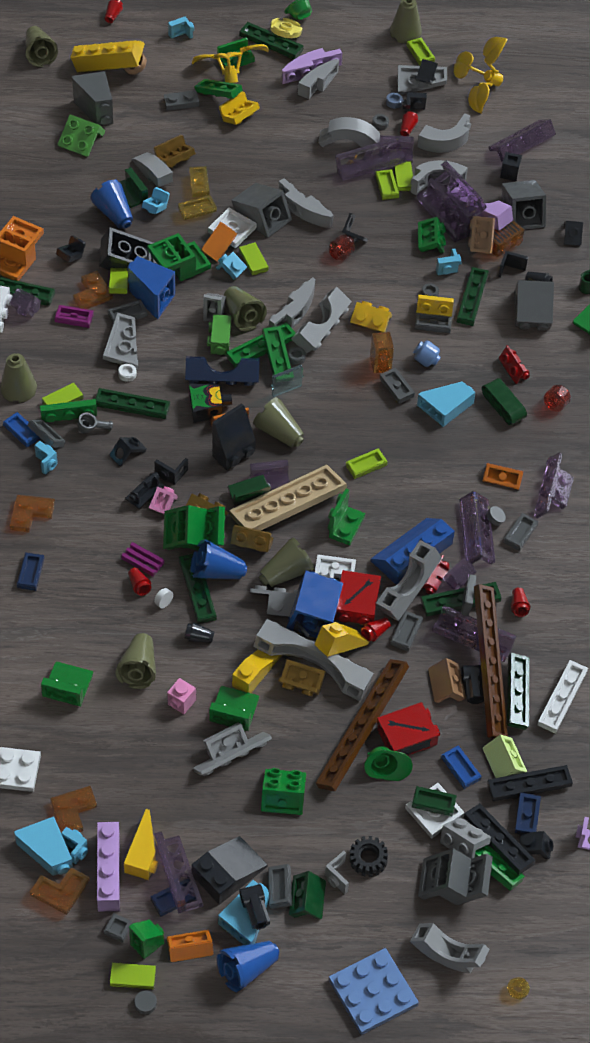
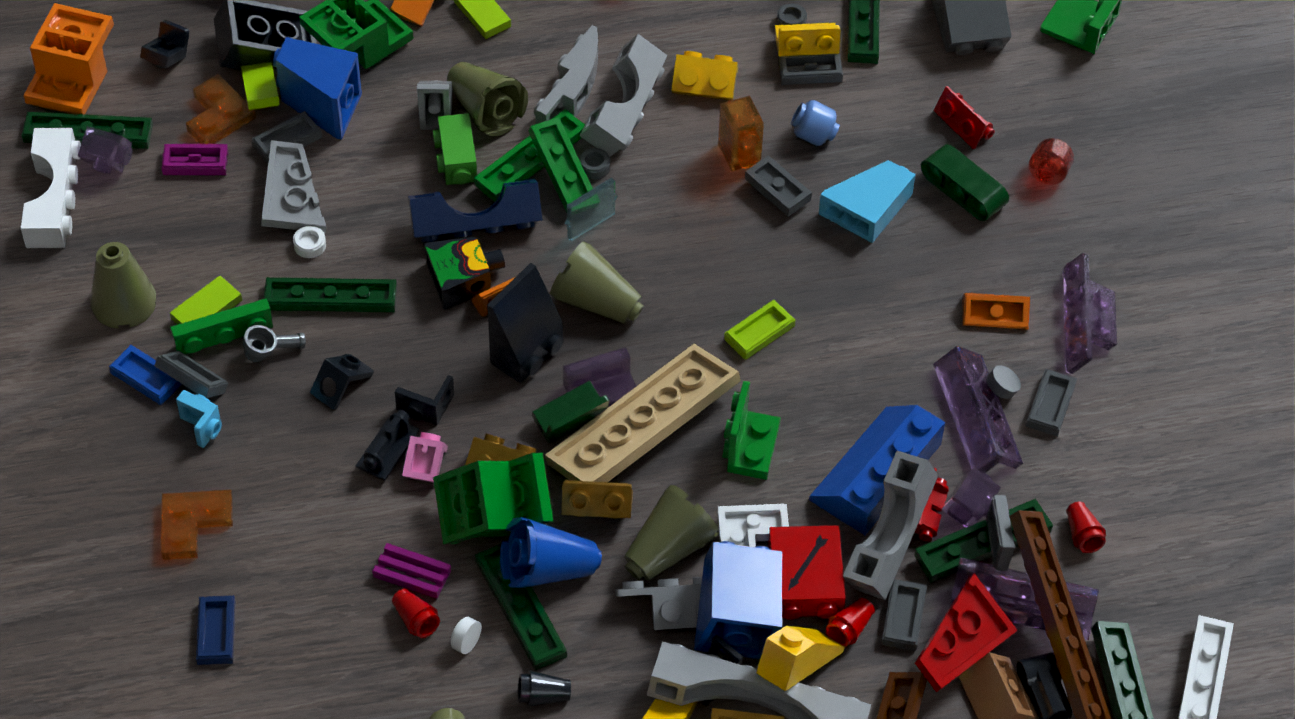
camera: 10 degrees left, 0 degrees up
(231, 264) = (447, 26): medium azure bracket -> none
(435, 646) = (964, 635): none -> red wing

